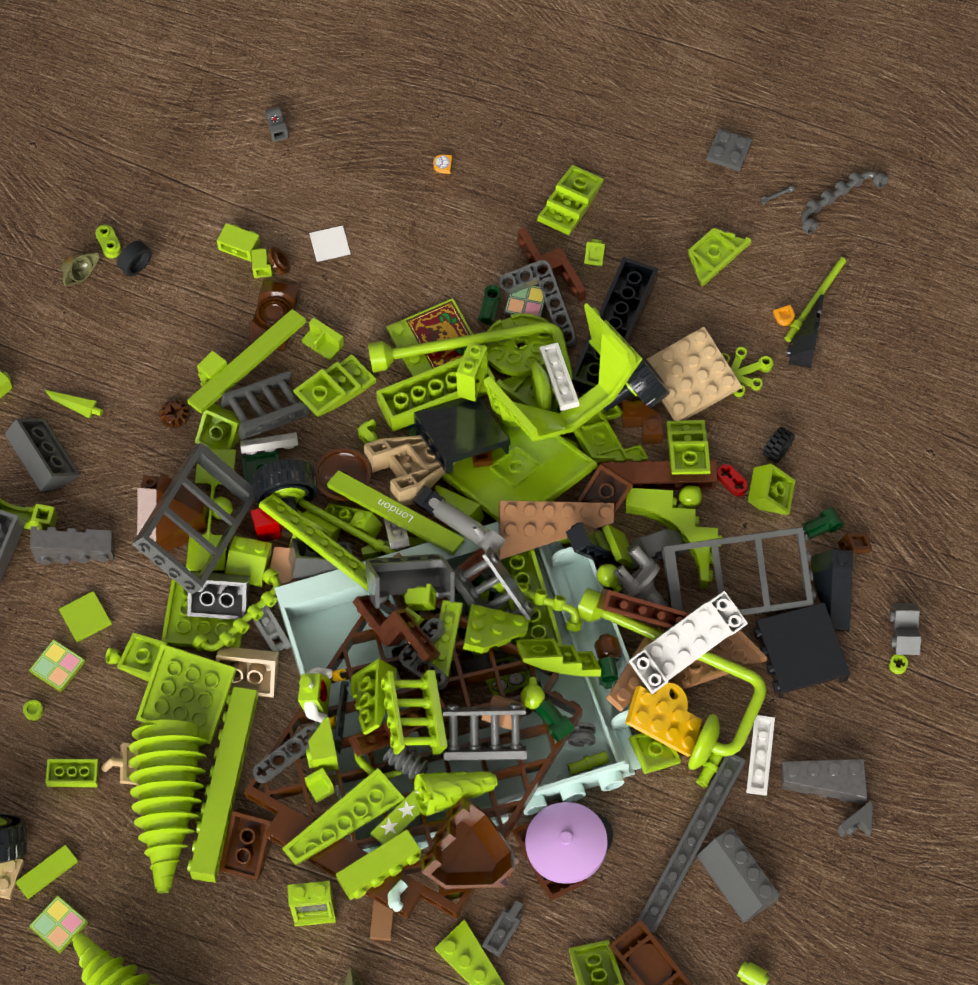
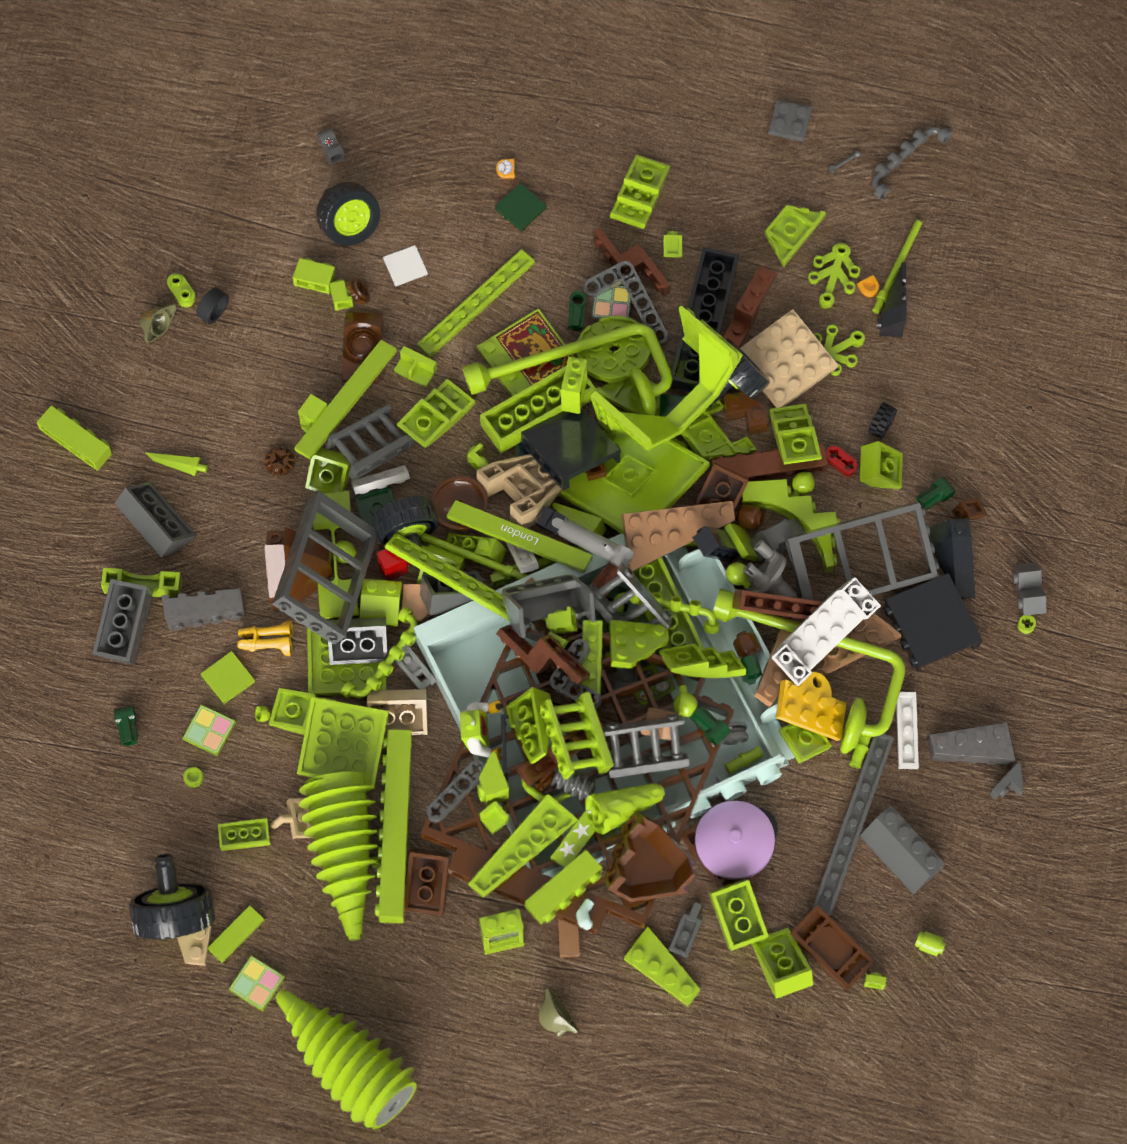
camera: 10 degrees left, 5 degrees up
(146, 589) = (283, 643): none -> yellow piece
(279, 186) = (348, 213): none -> black wheel
(377, 756) = (545, 781): none -> reddish brown piece
(392, 287) = (475, 303): none -> lime tile
(451, 201) = (520, 207): none -> dark green tile
(558, 918) = (738, 914): none -> lime brick
(559, 376) = (660, 380): white plate -> none
(631, 523) = (749, 517): none -> reddish brown head
(659, 320) = (748, 306): none -> copper bracket
(751, 297) = (834, 272): none -> lime plant

